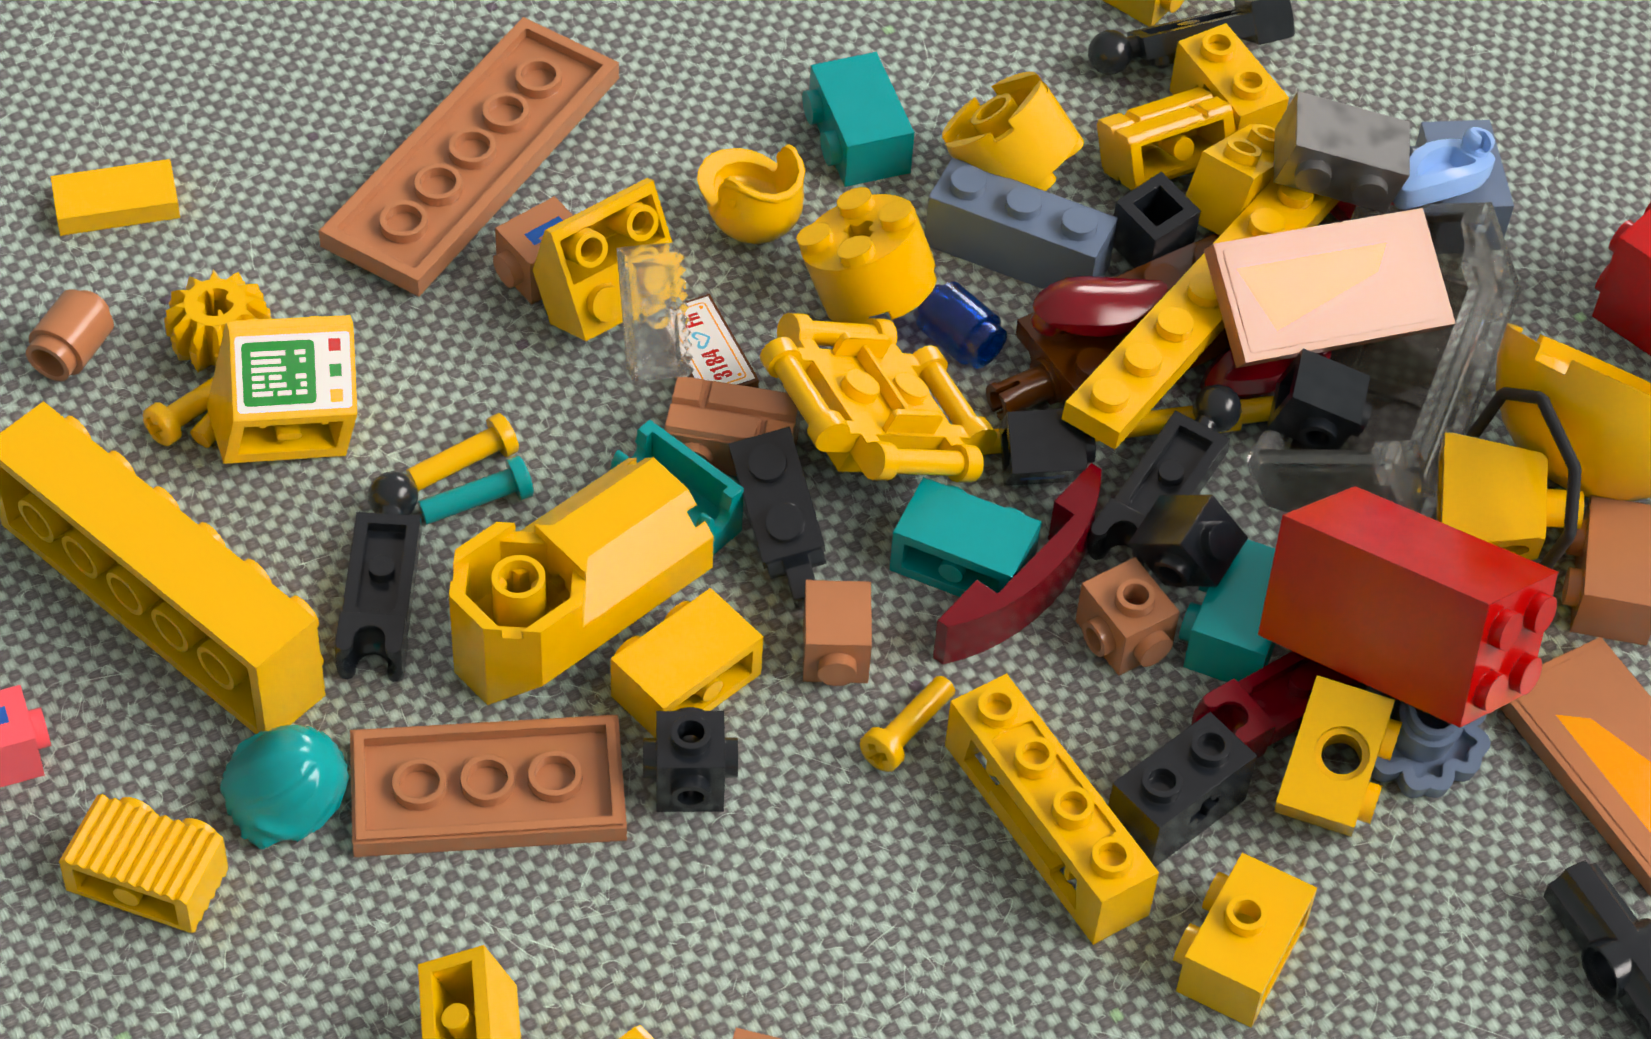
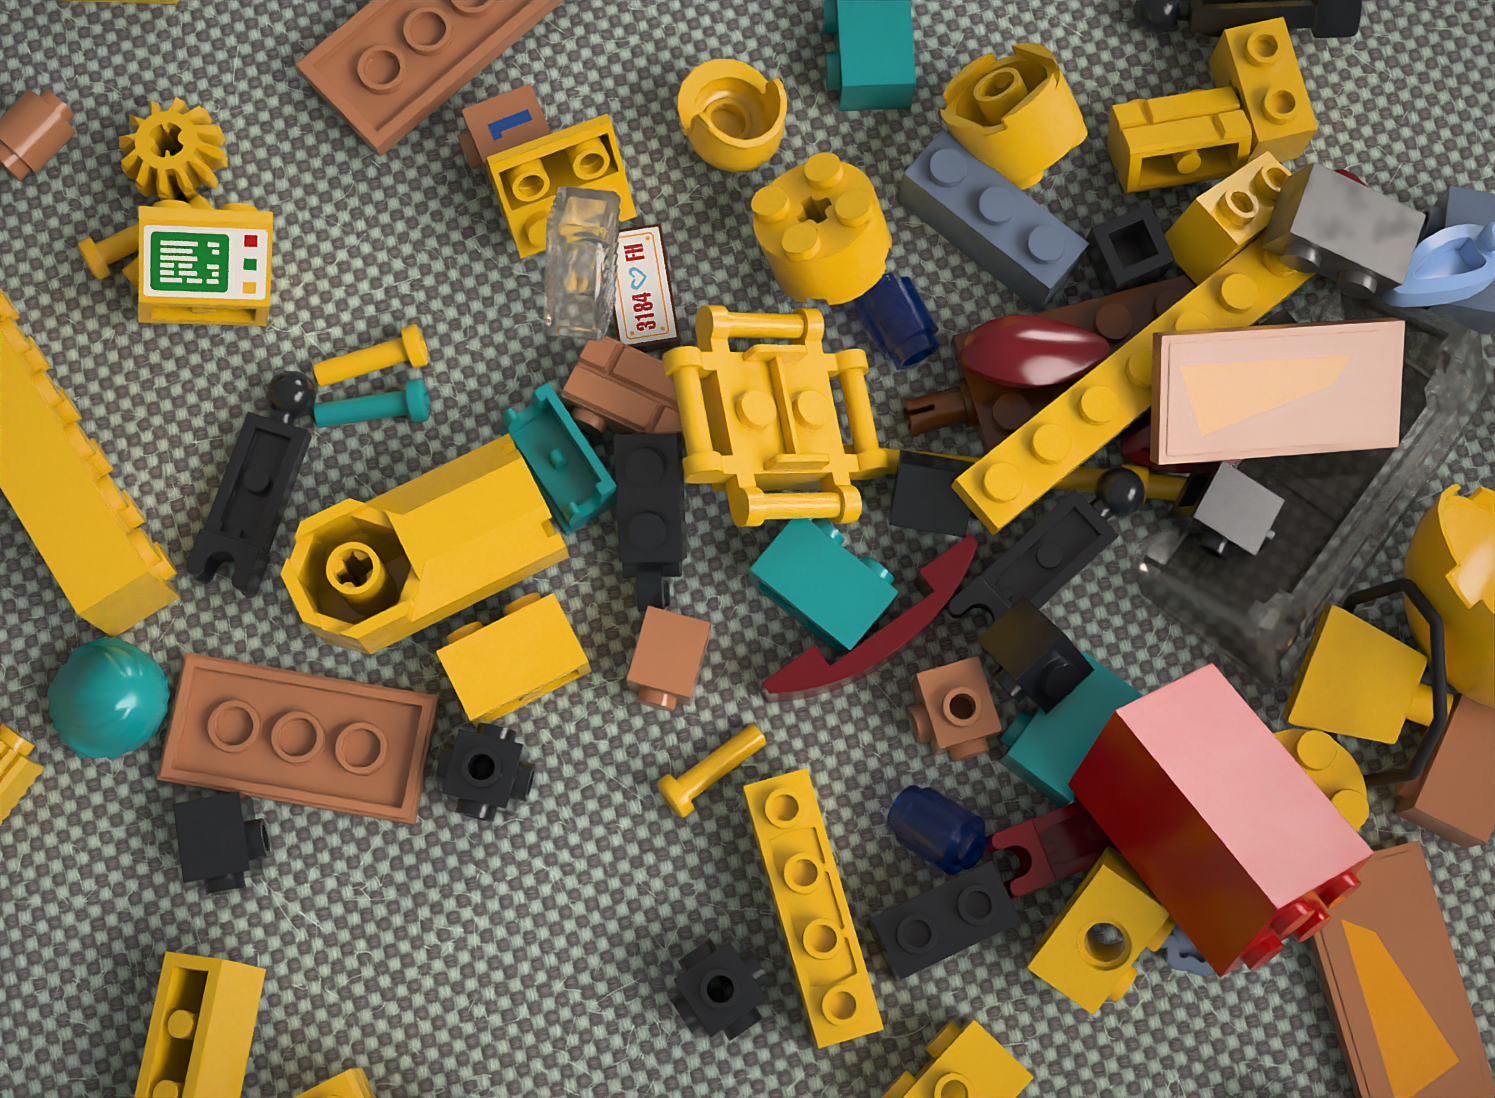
camera: 15 degrees right, 25 degrees up
(437, 878) = (220, 842): none -> black brick
(984, 893) = (740, 1010): none -> black brick
(1145, 712) = (937, 829): none -> clear blue brick

